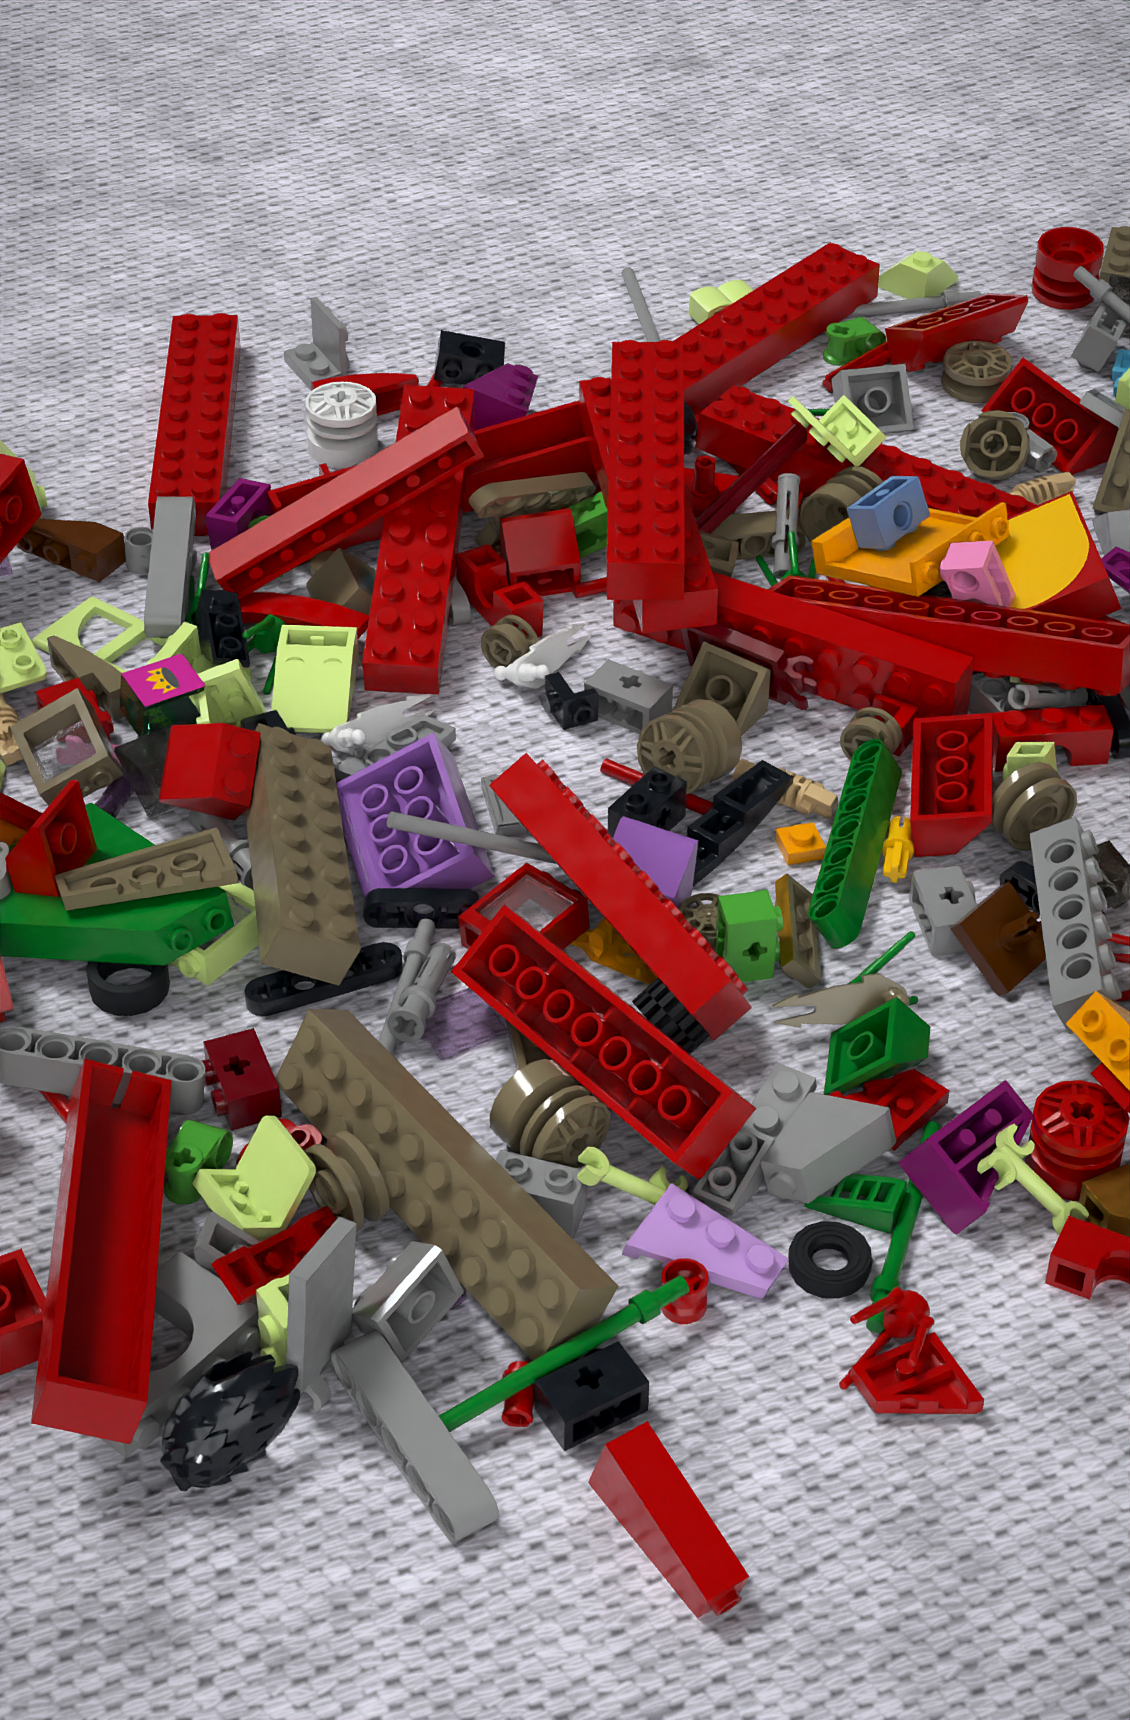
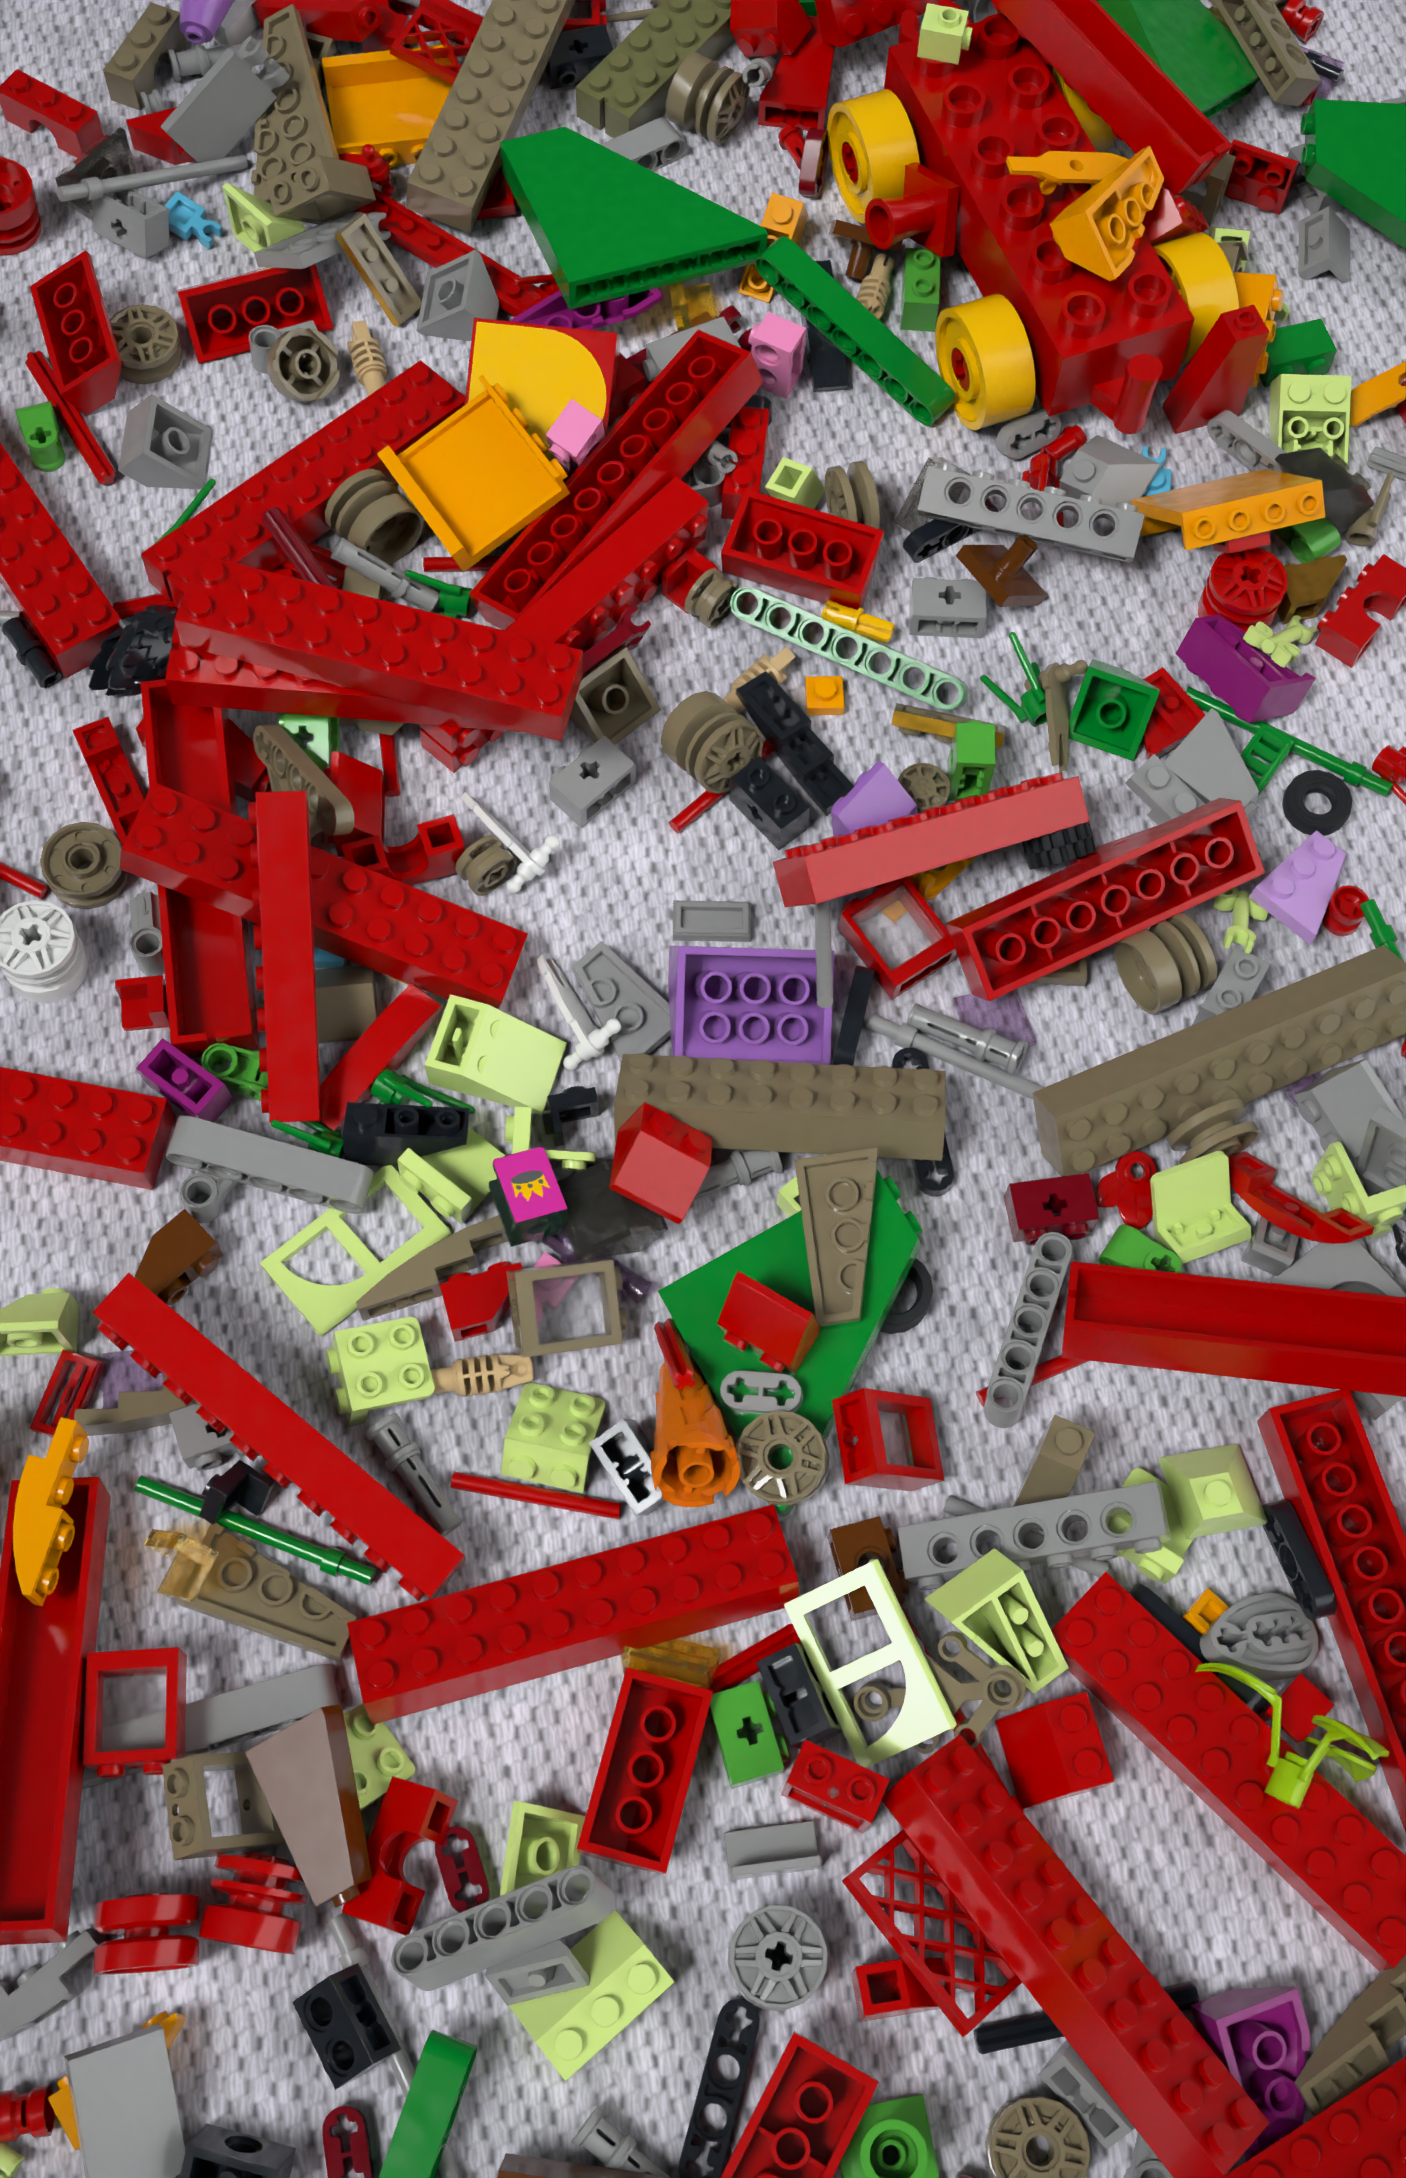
camera: 80 degrees left, 25 degrees up
(502, 394) = (70, 780): magenta wedge -> none
(566, 706) = (586, 839): black bracket -> none
(844, 427) = (292, 473): yellowish green bracket -> none
(888, 512) = (435, 477): medium blue brick -> none

